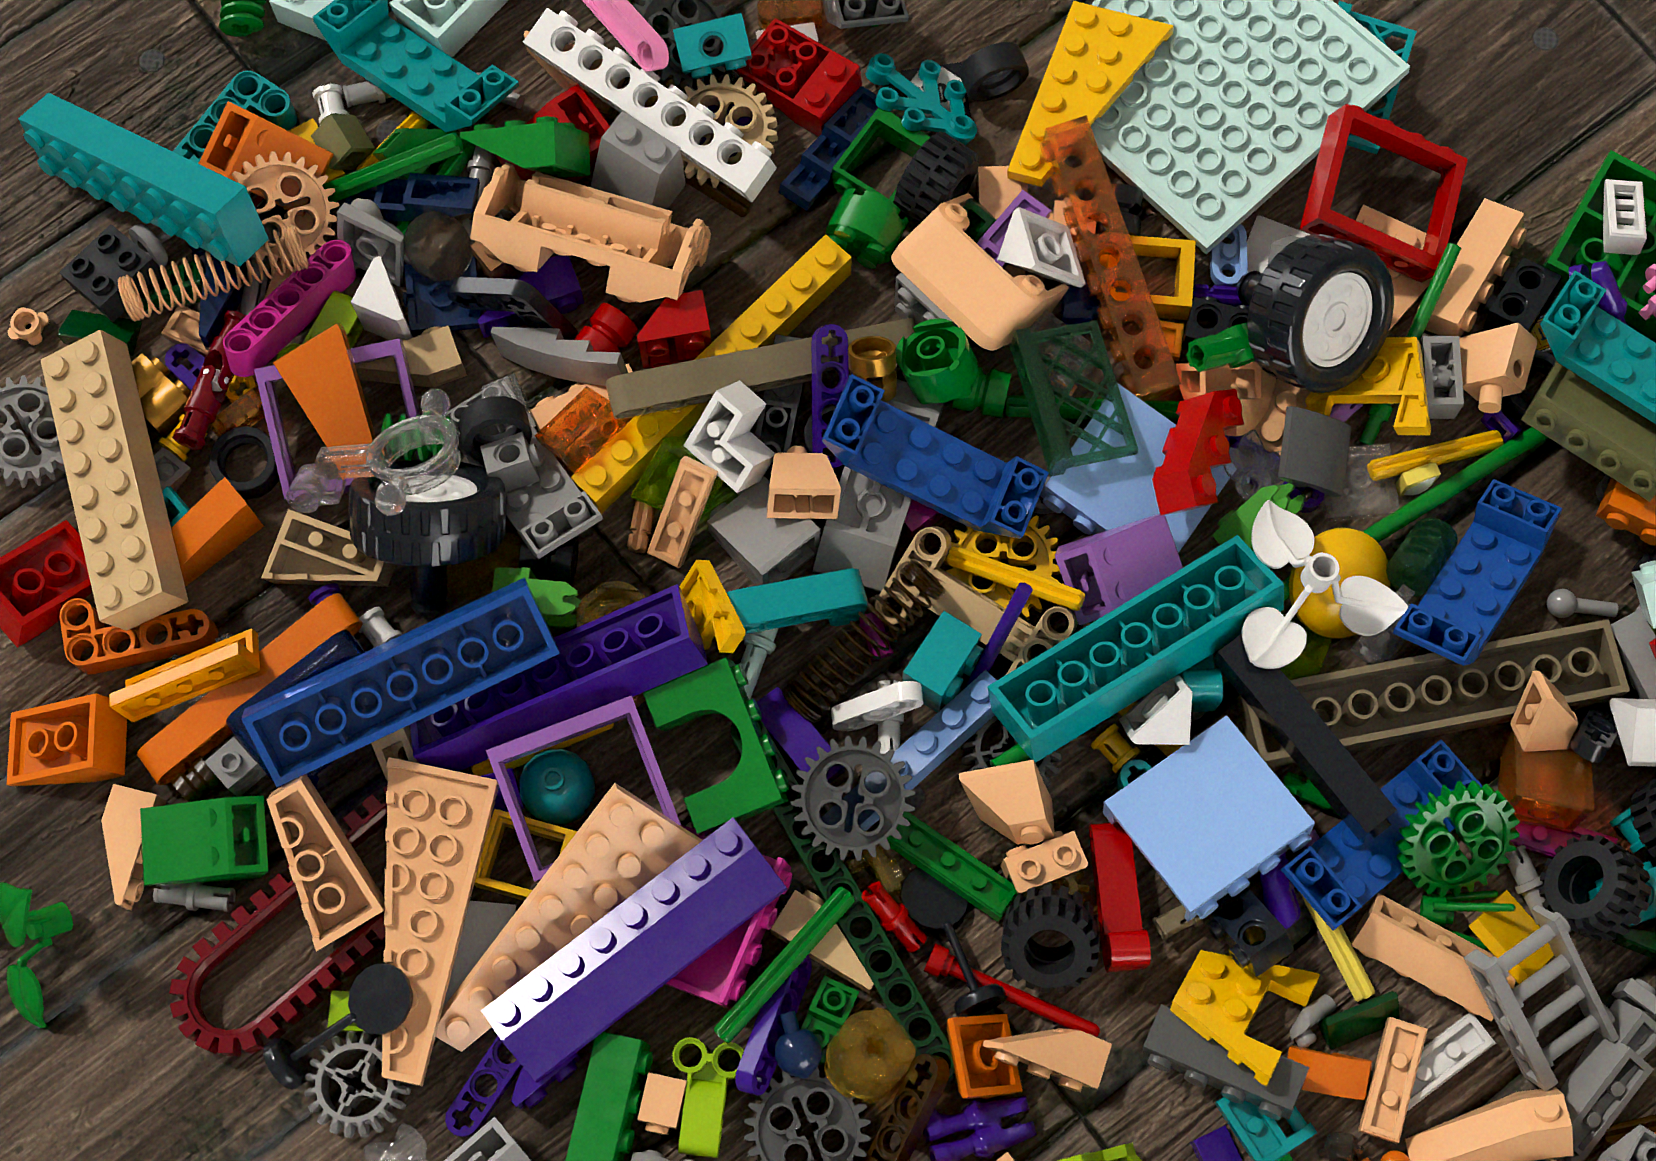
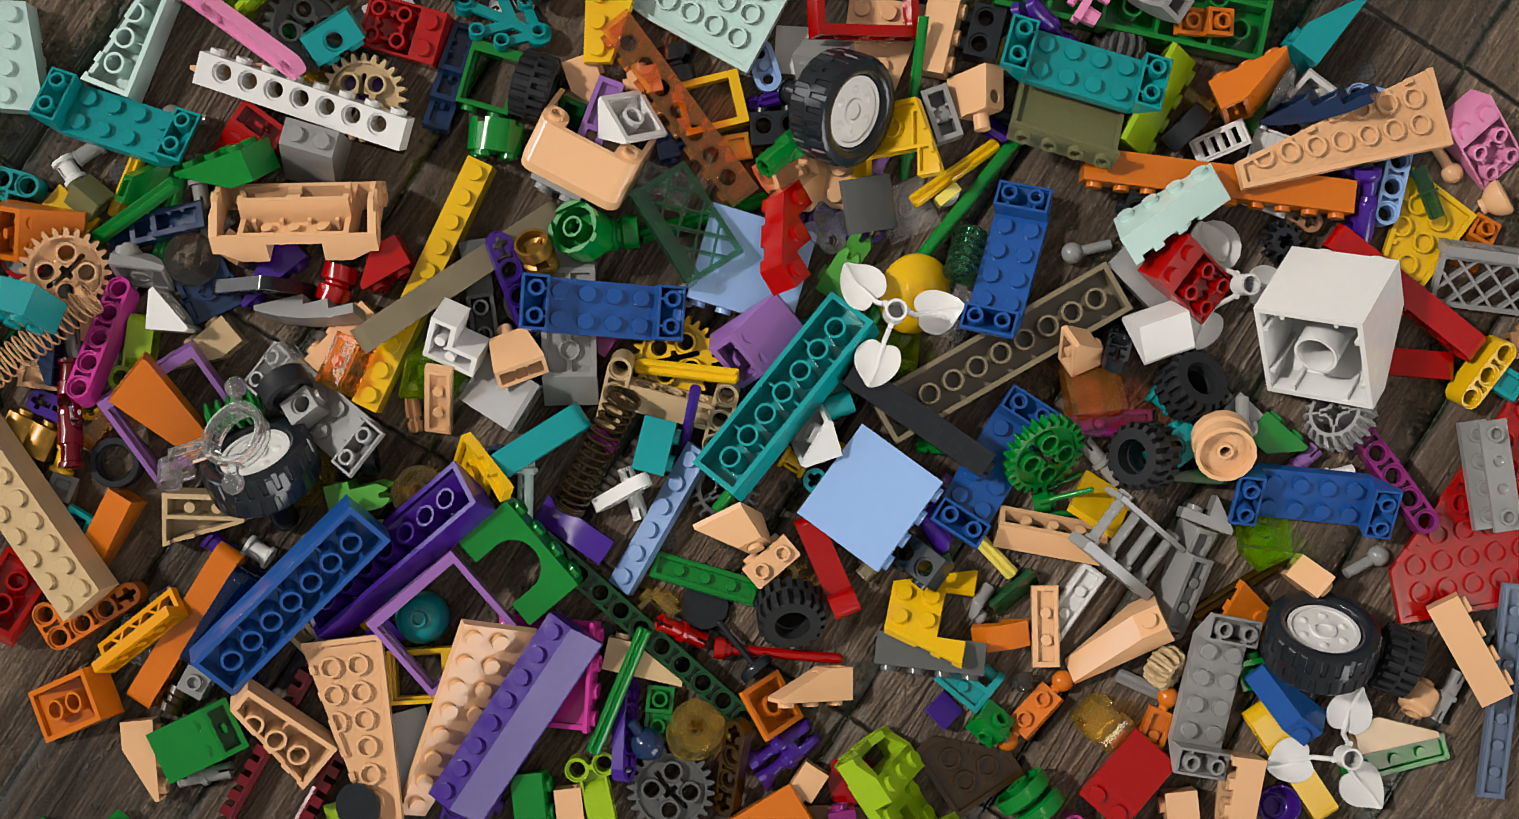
camera: 20 degrees left, 15 degrees up
(818, 792) = (602, 567): dark grey gear -> none

